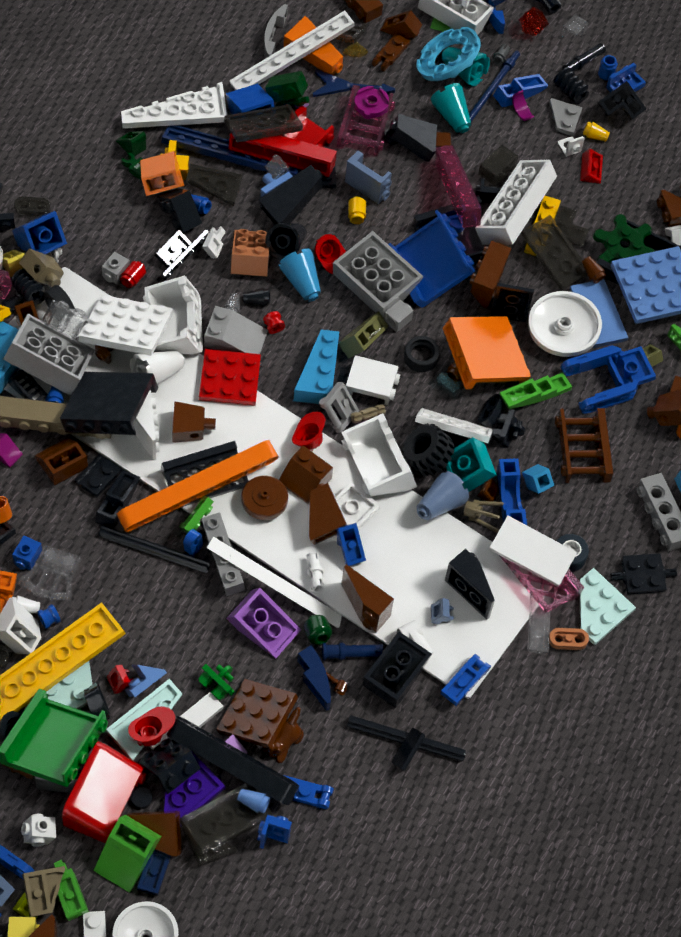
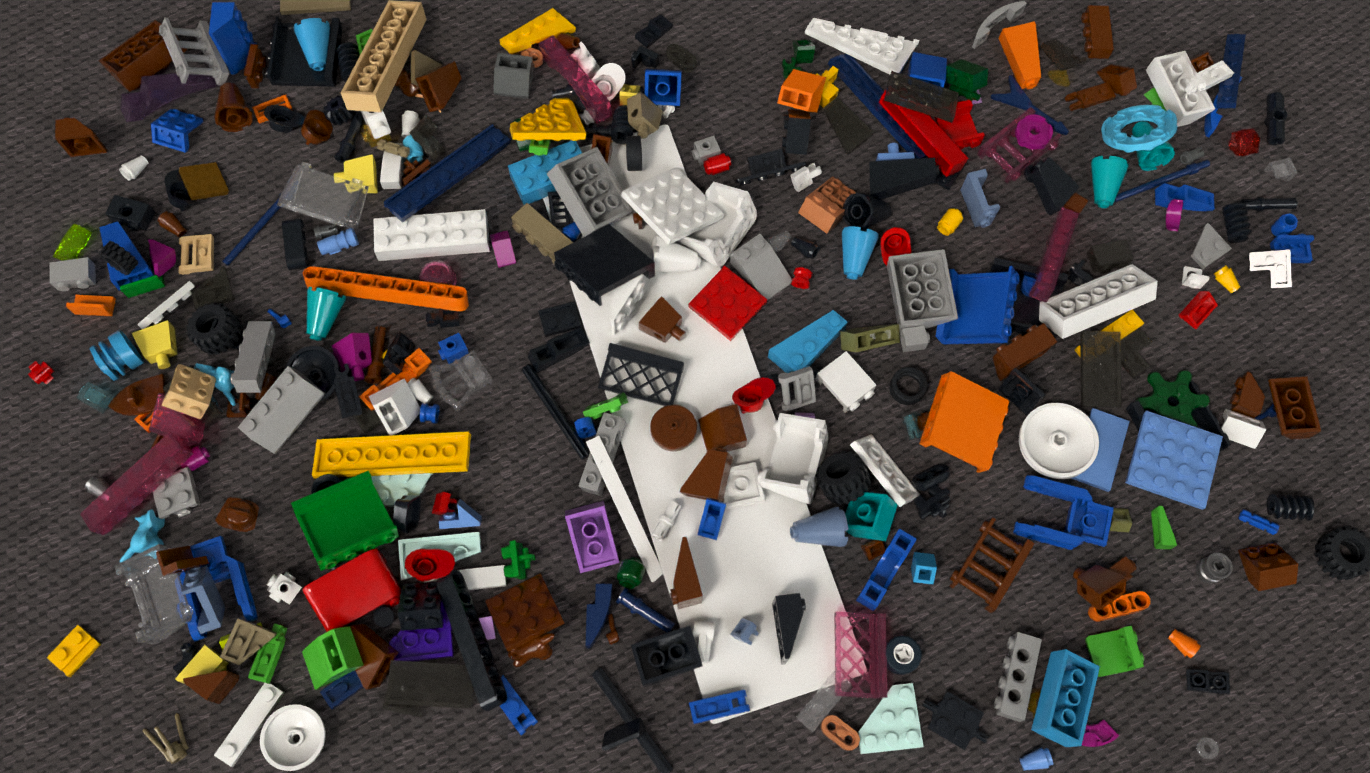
camera: 40 degrees right, 10 degrees up
(62, 460) = (539, 288): reddish brown slope -> none
(65, 319) = (624, 169): clear brick -> none
(197, 485) = (625, 381): orange beam -> none
(202, 204) = (818, 135): blue cone -> none
(254, 800) = (461, 687): medium blue cone -> none
(274, 828) = (461, 724): blue bracket -> none
(277, 167) = (906, 142): clear panel -> none
(294, 51) = (1000, 48): white plate -> none
(368, 413) = (821, 410): dark tan axle -> none
(474, 510) = (845, 559): dark tan plant -> none
(533, 551) = (864, 633): white tile -> none
(535, 391) = (983, 485): bright green slope -> none
(593, 270) = (1124, 407): reddish brown cone -> none

